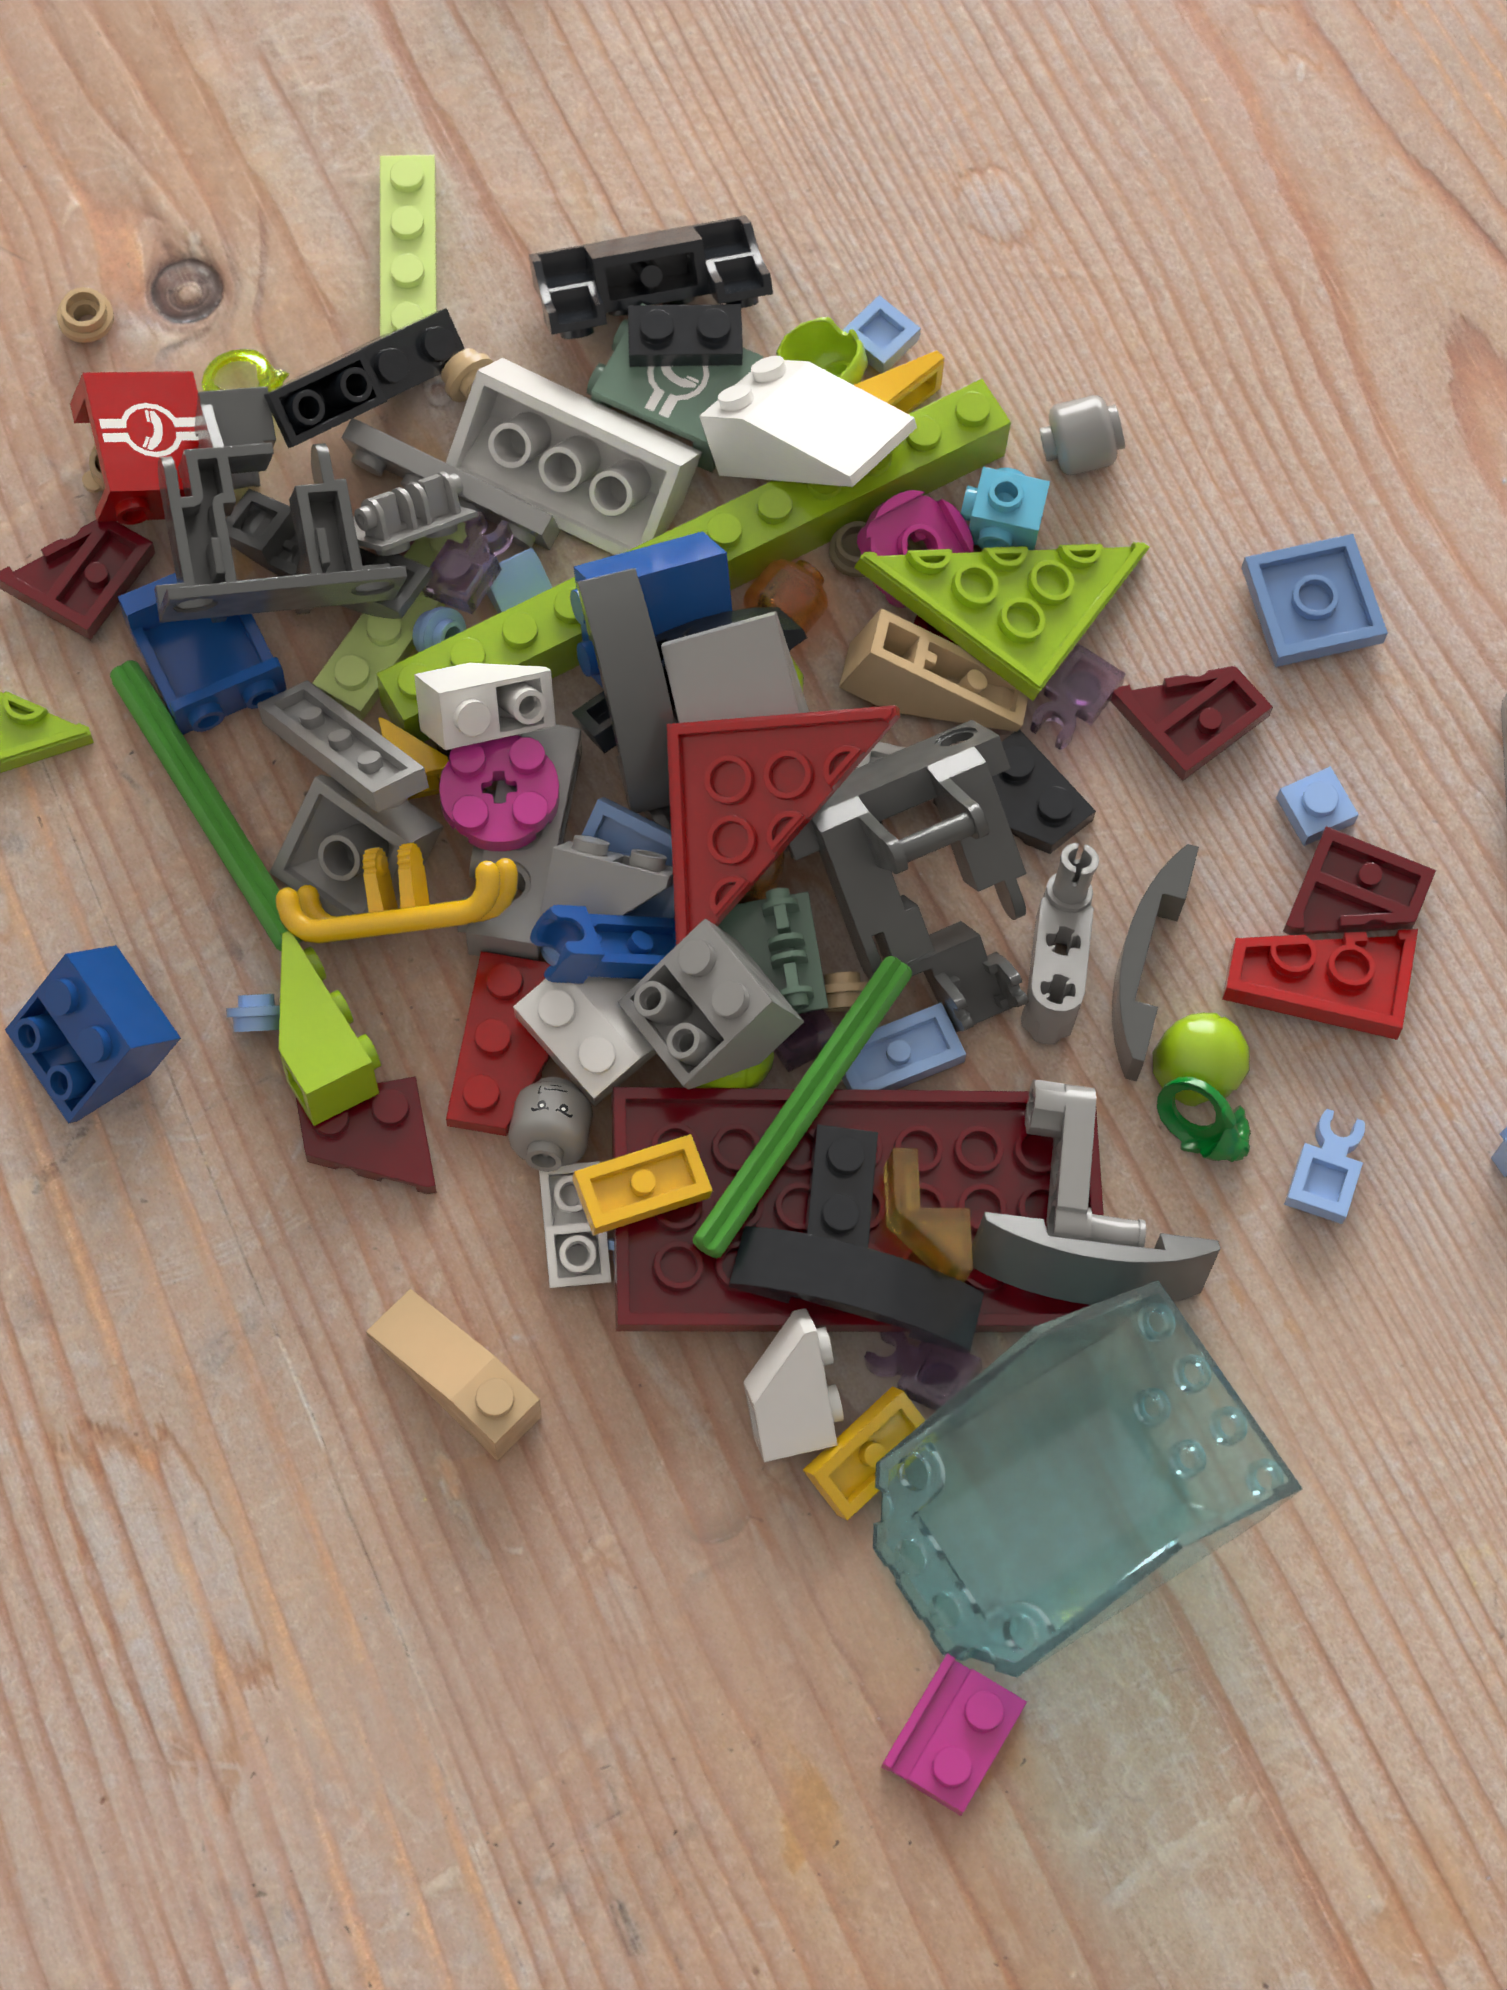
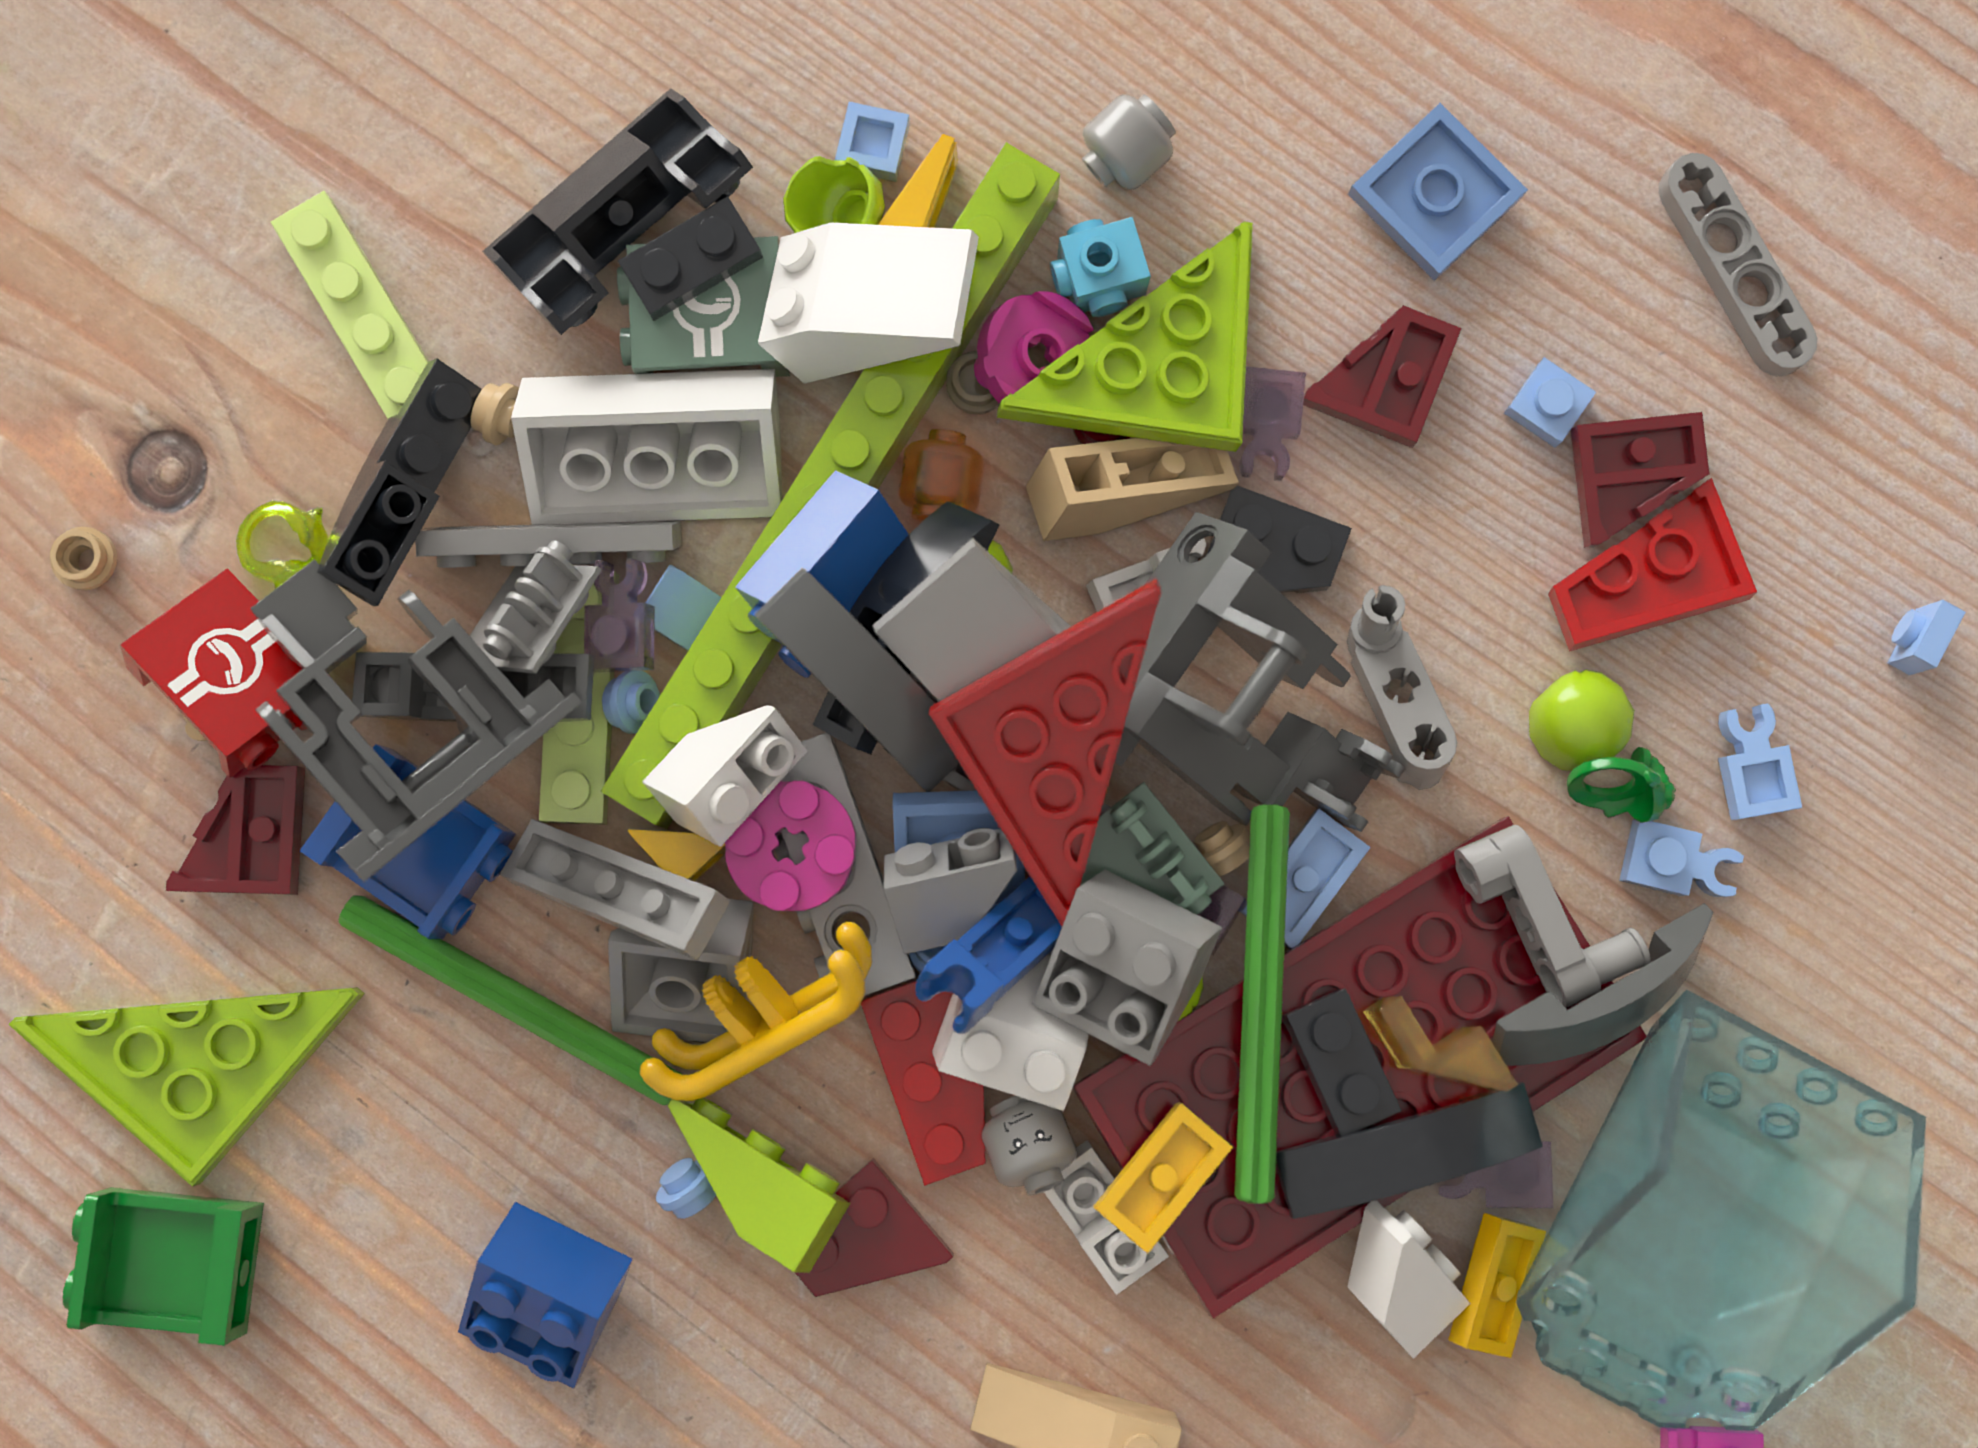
camera: 25 degrees left, 15 degrees up
(1133, 1019) = (1506, 732): dark grey slope -> none
(1213, 1206) = (1670, 859): none -> light blue plate

